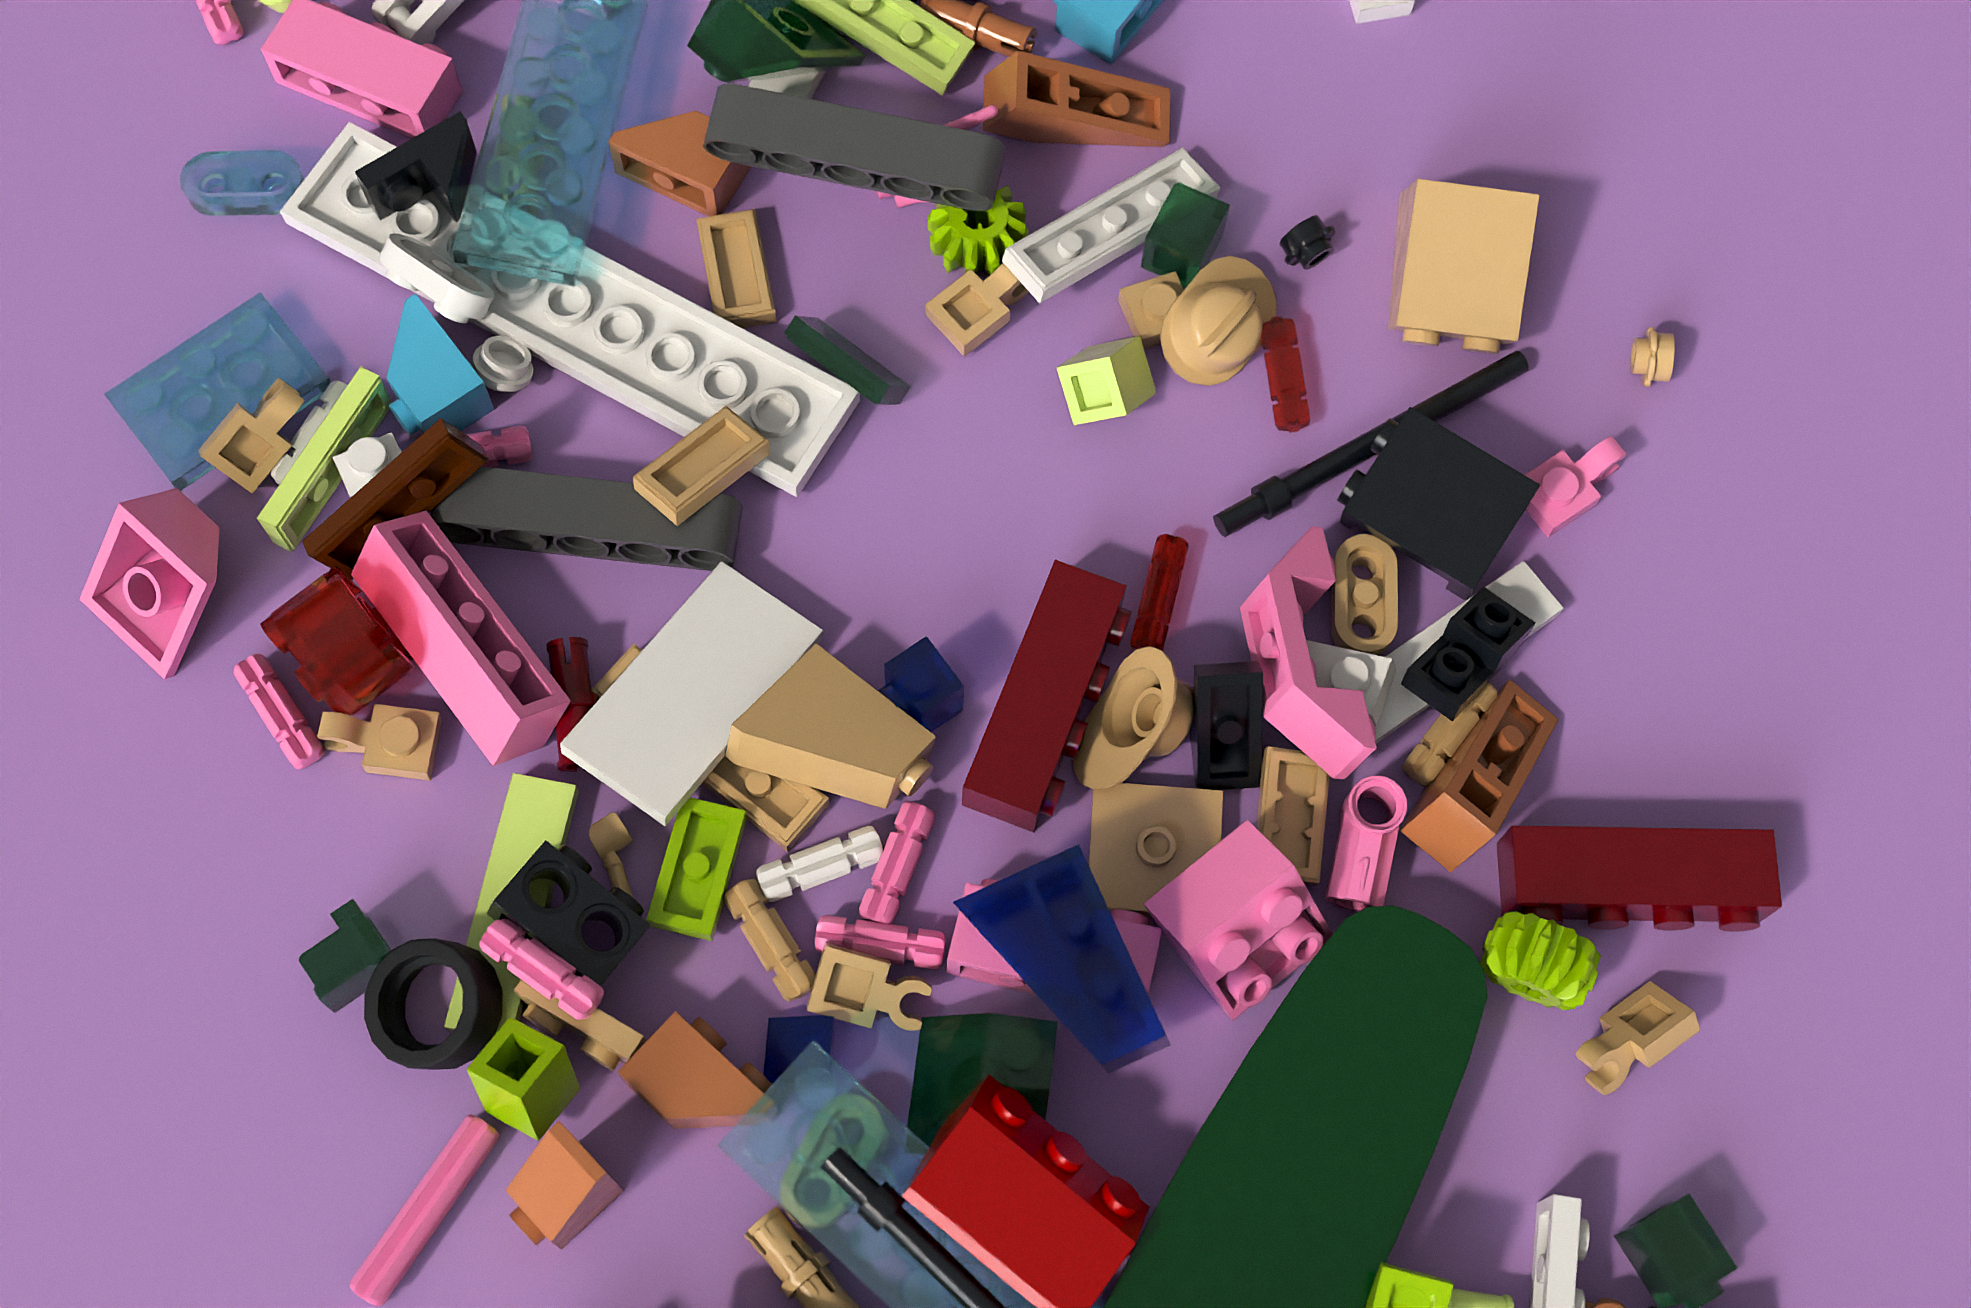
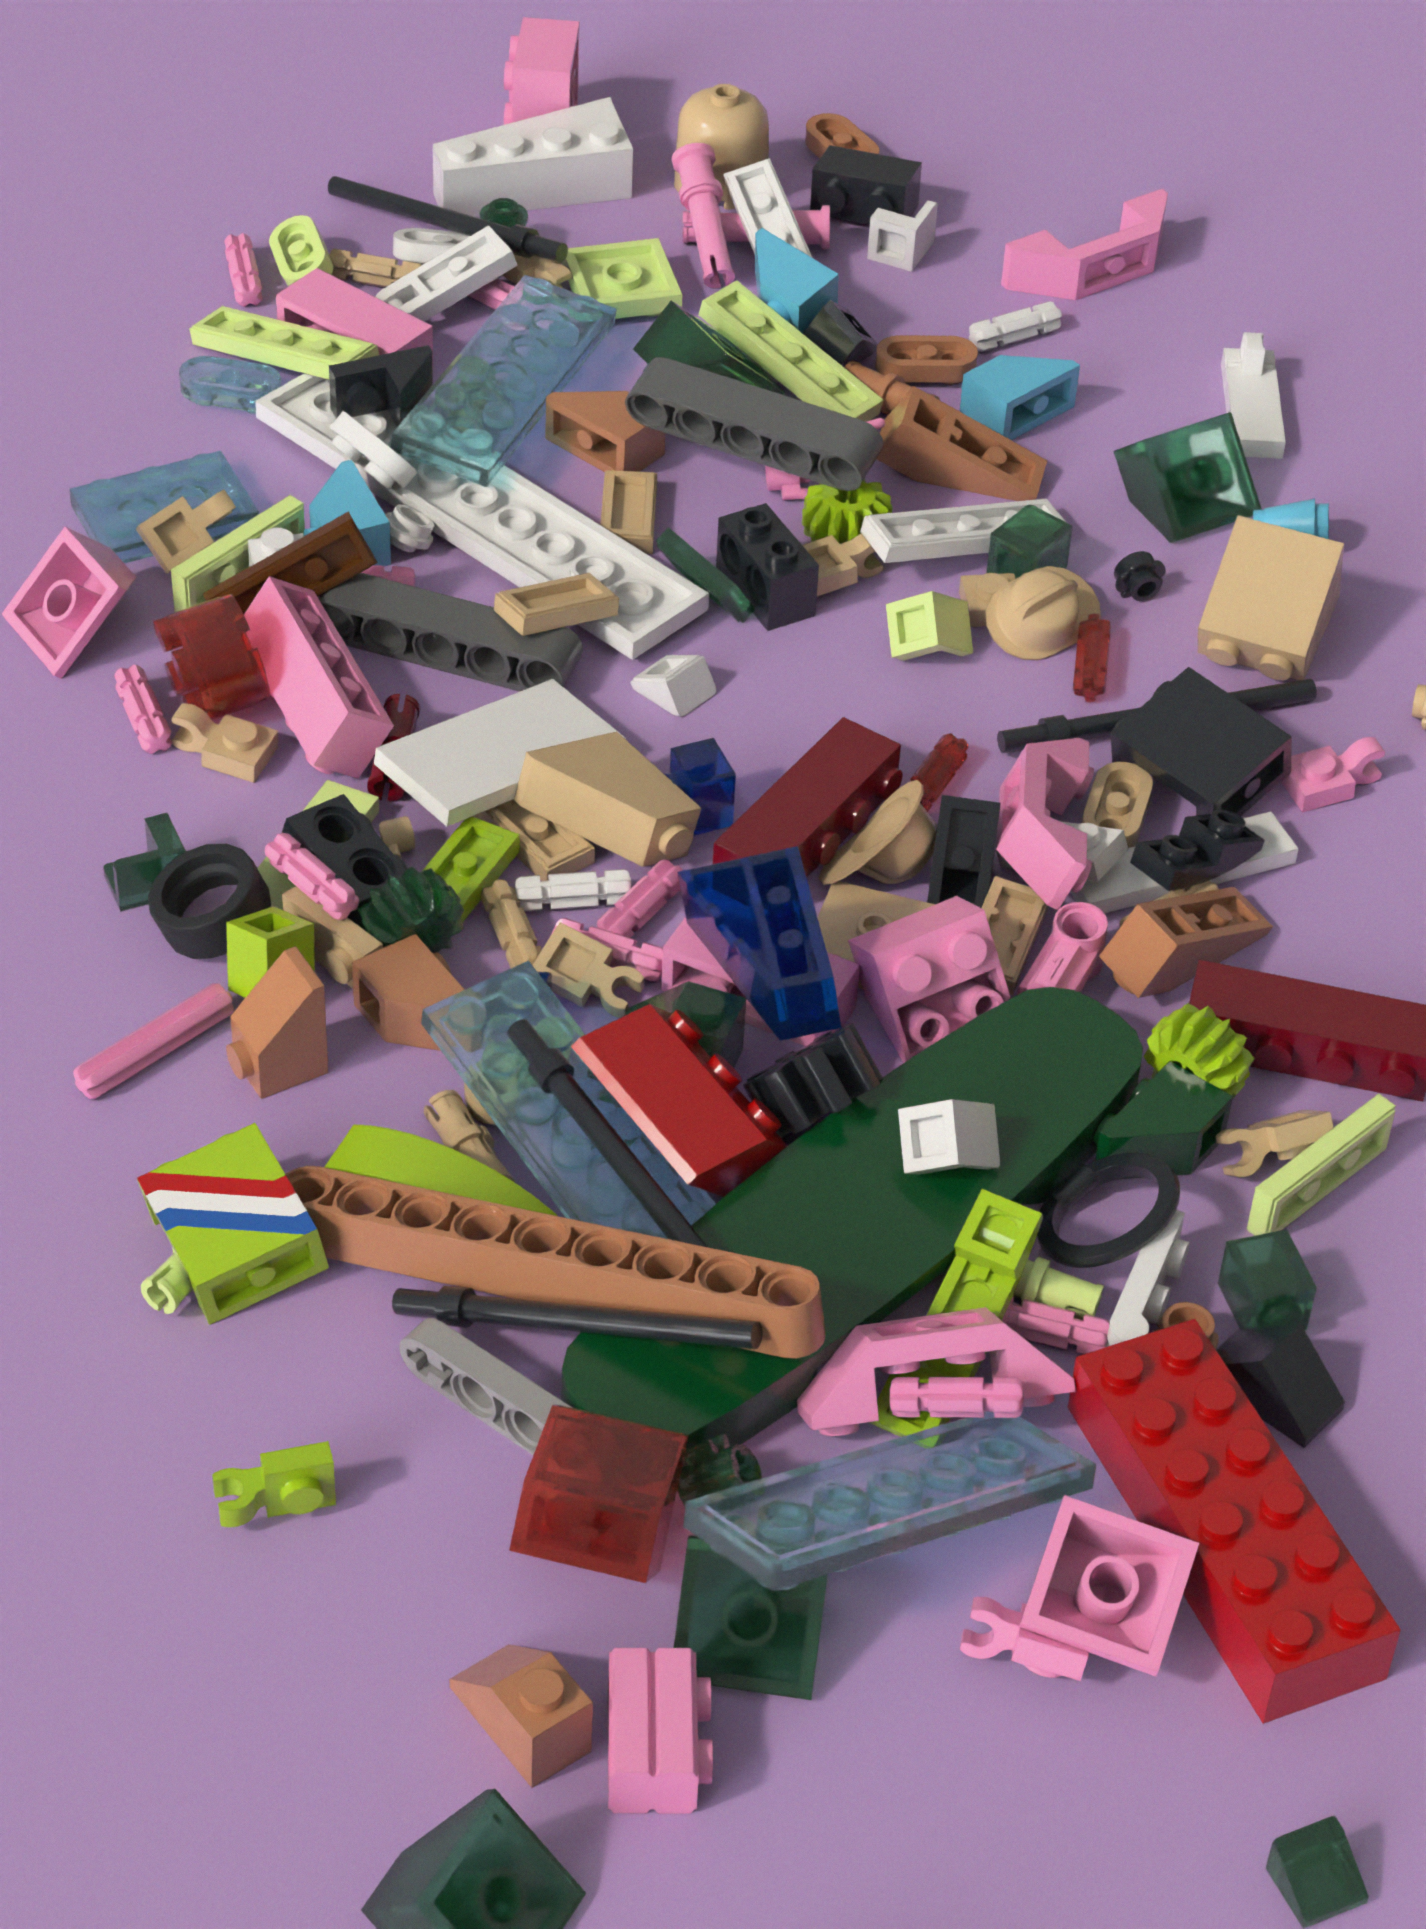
camera: 15 degrees right, 25 degrees down
(289, 113) = (277, 342): none -> yellowish green tile
(662, 978) = (414, 905): none -> clear green gear
(851, 520) = (676, 683): none -> white slope
(912, 333) = (767, 566): none -> black brick
(1156, 1119) = (815, 1079): none -> black gear
(1325, 1184) = (948, 1136): none -> white panel
(1328, 86) = (1189, 478): none -> slope
(1446, 1158) = (1085, 1180): none -> black piece
(1452, 126) = (1301, 516): none -> medium azure cone
(1524, 1051) = (1167, 1118): none -> dark green slope
(1692, 1069) = (1321, 1167): none -> yellowish green tile

